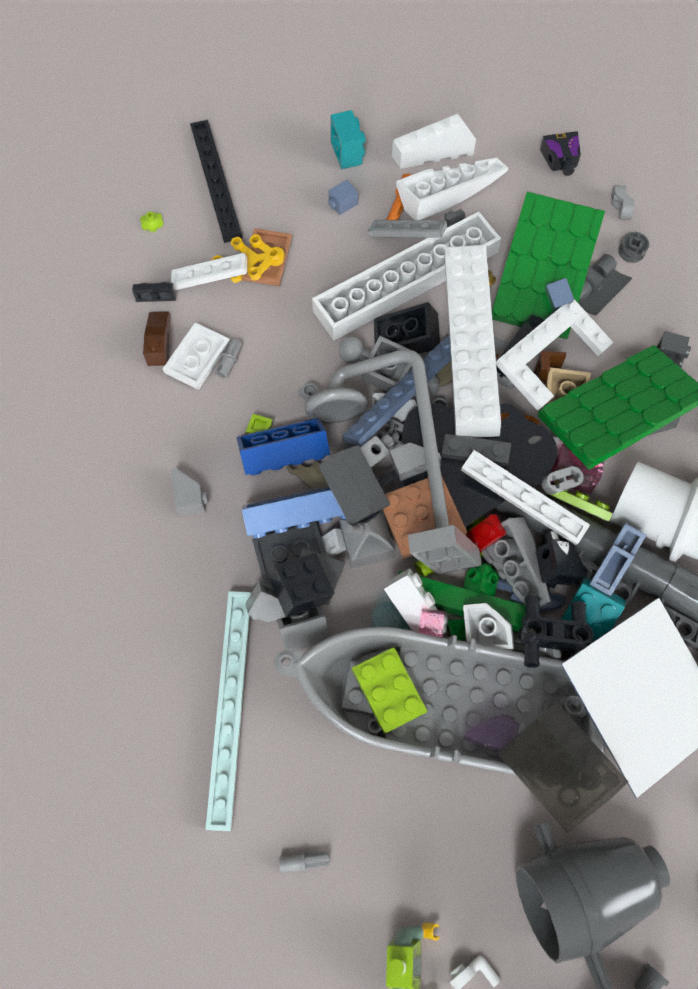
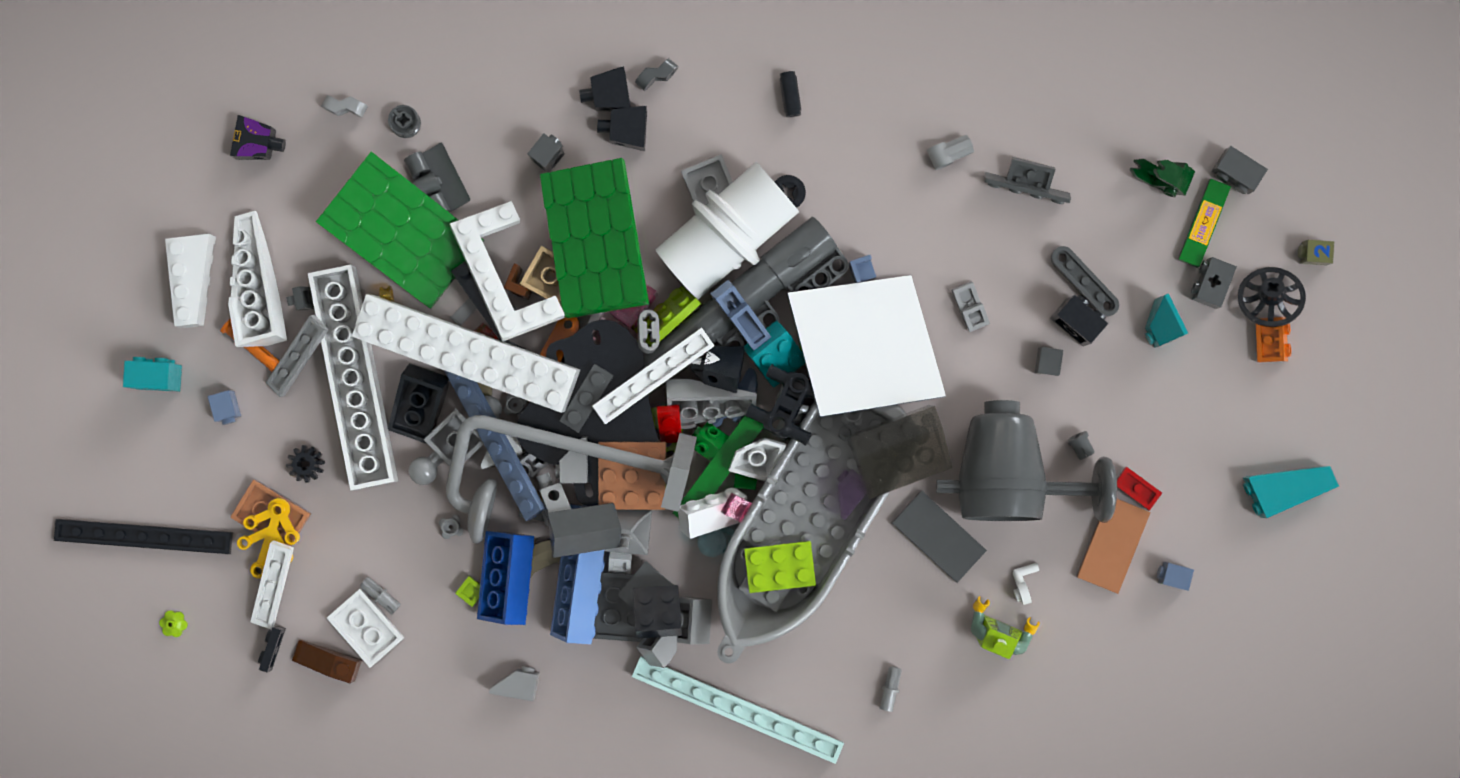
camera: 70 degrees left, 20 degrees up
(320, 266) = (308, 455): none -> black gear
(483, 855) = (939, 536): none -> dark grey tile
(559, 294) = (443, 236): sand blue panel -> none

